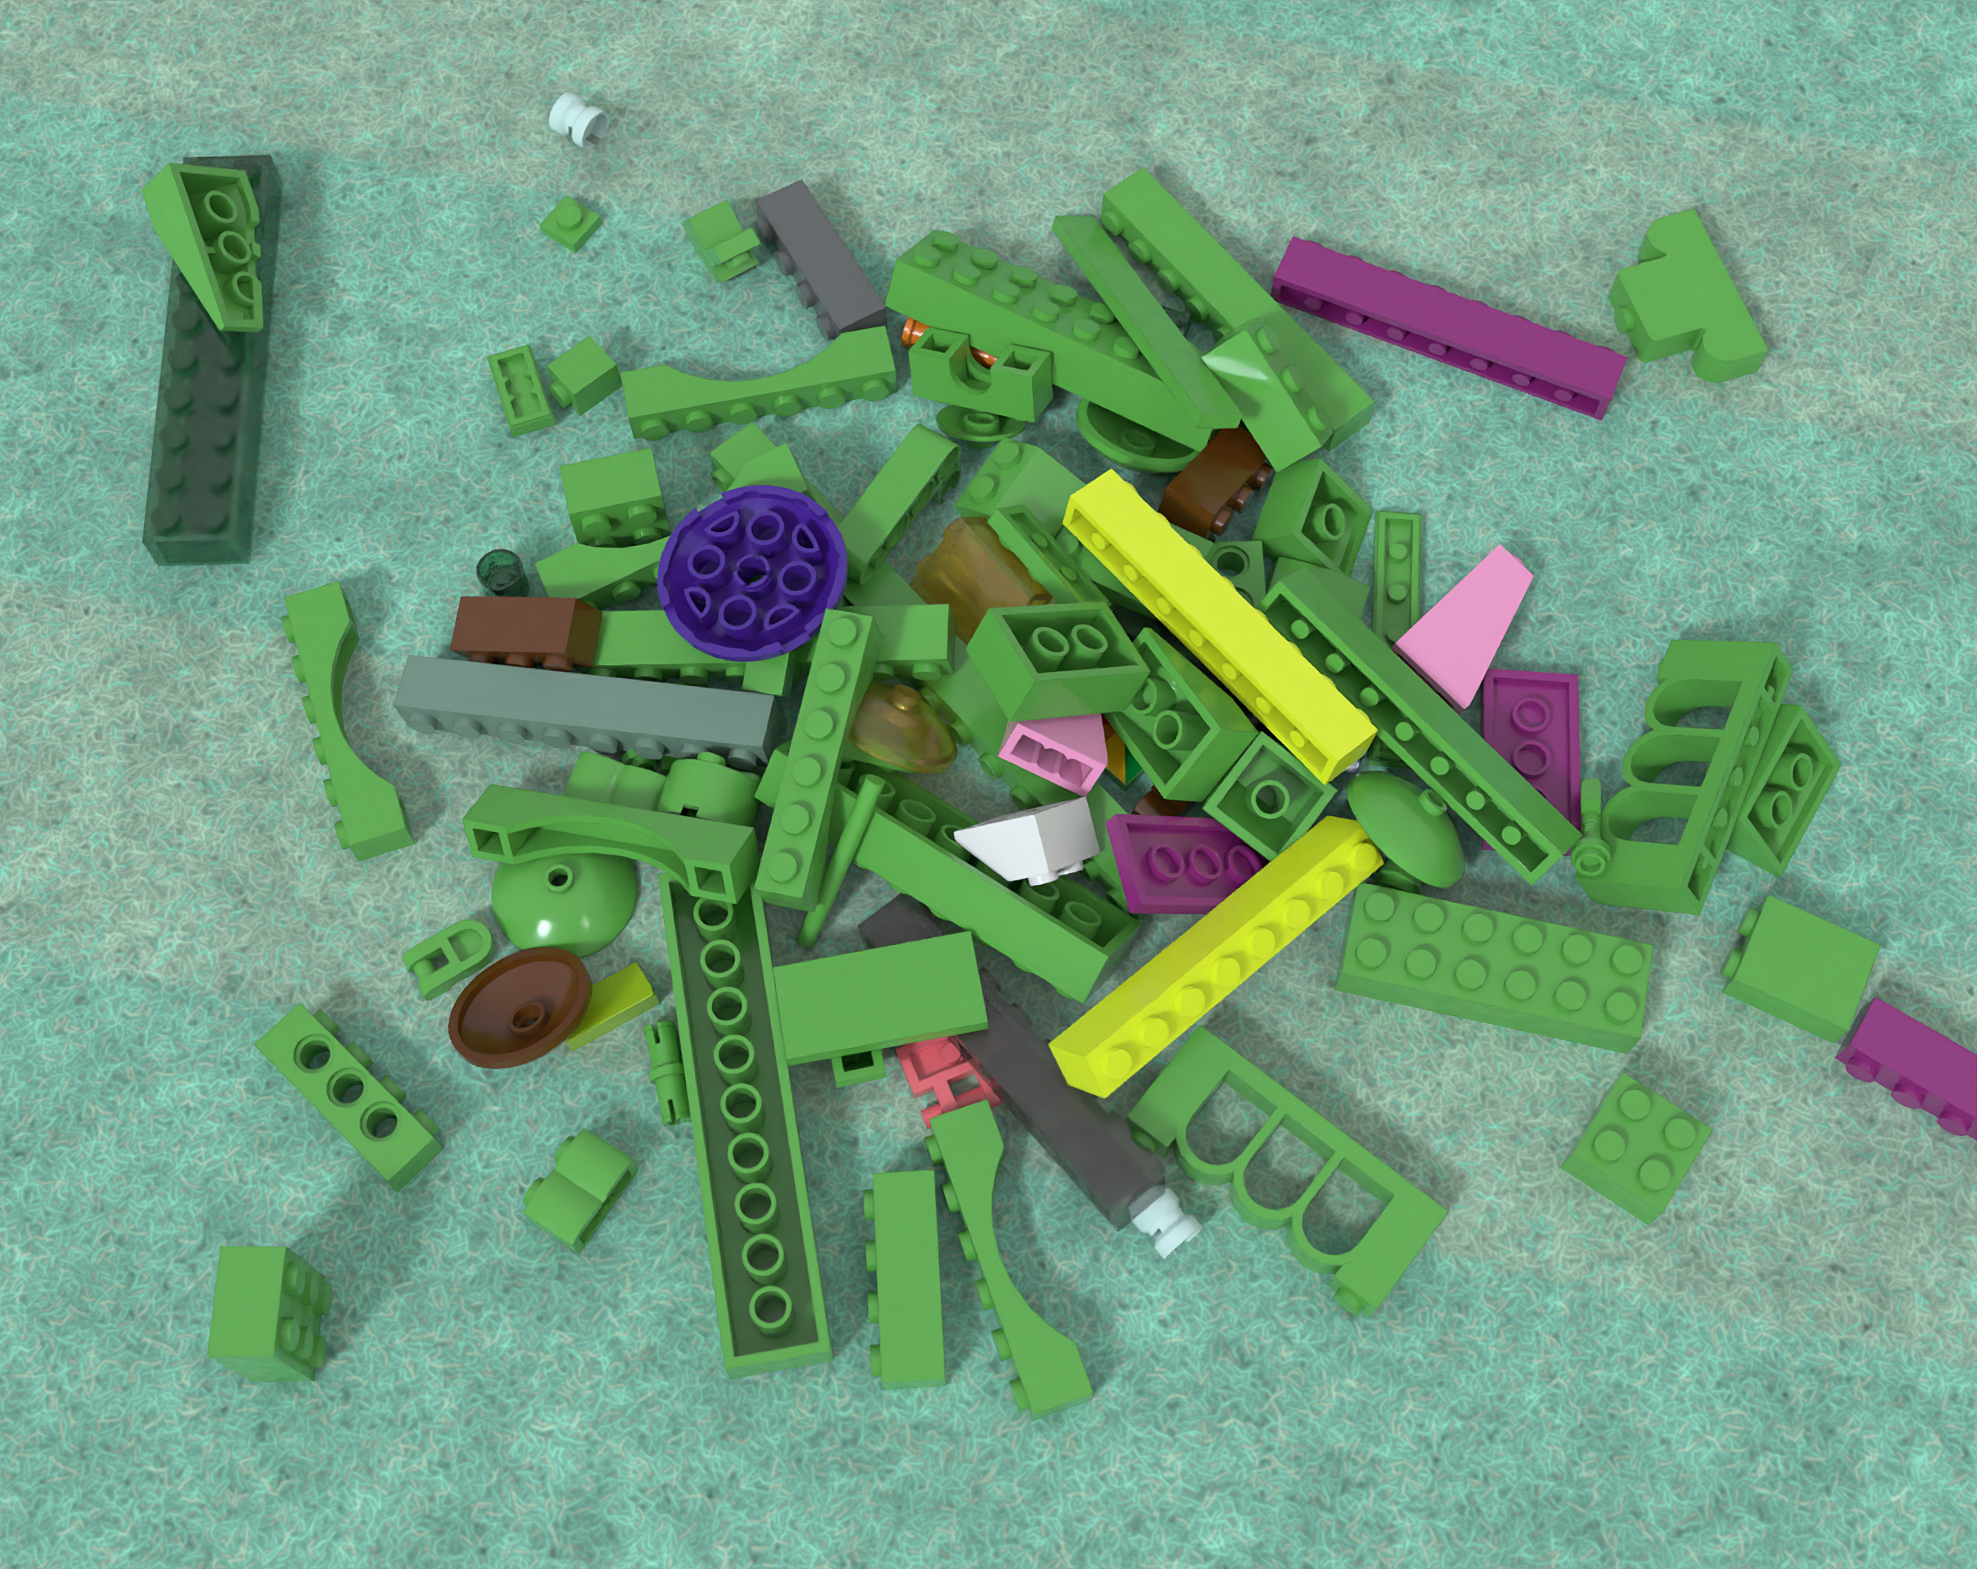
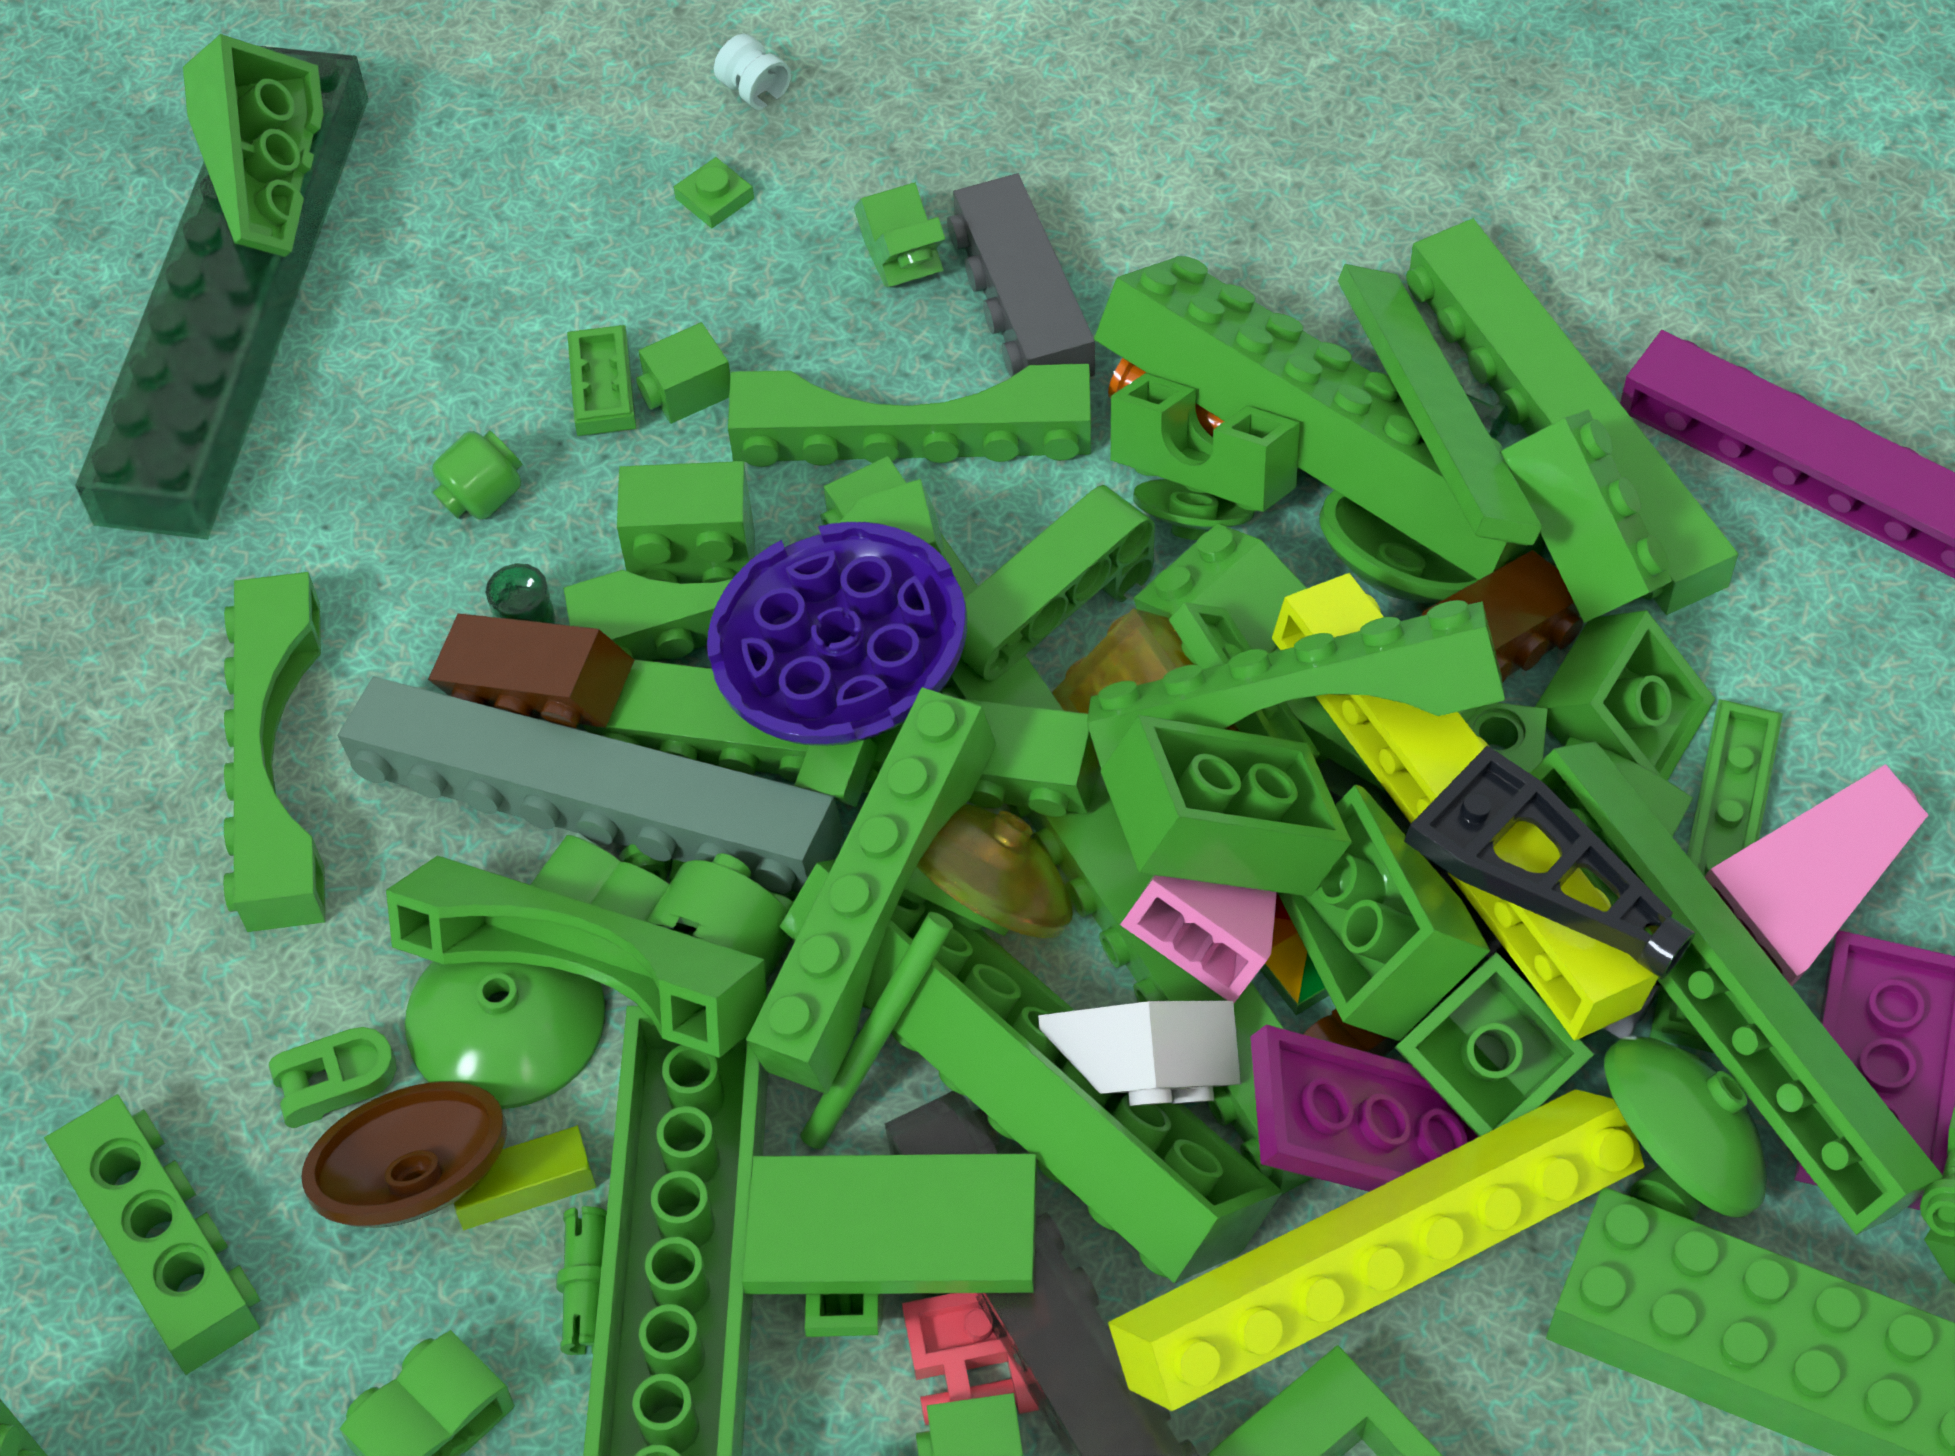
camera: 15 degrees right, 10 degrees down
(445, 482) = (476, 475): none -> bright green head
(1179, 533) = (1428, 661): none -> bright green arch
(1234, 639) = (1486, 803): none -> black plate

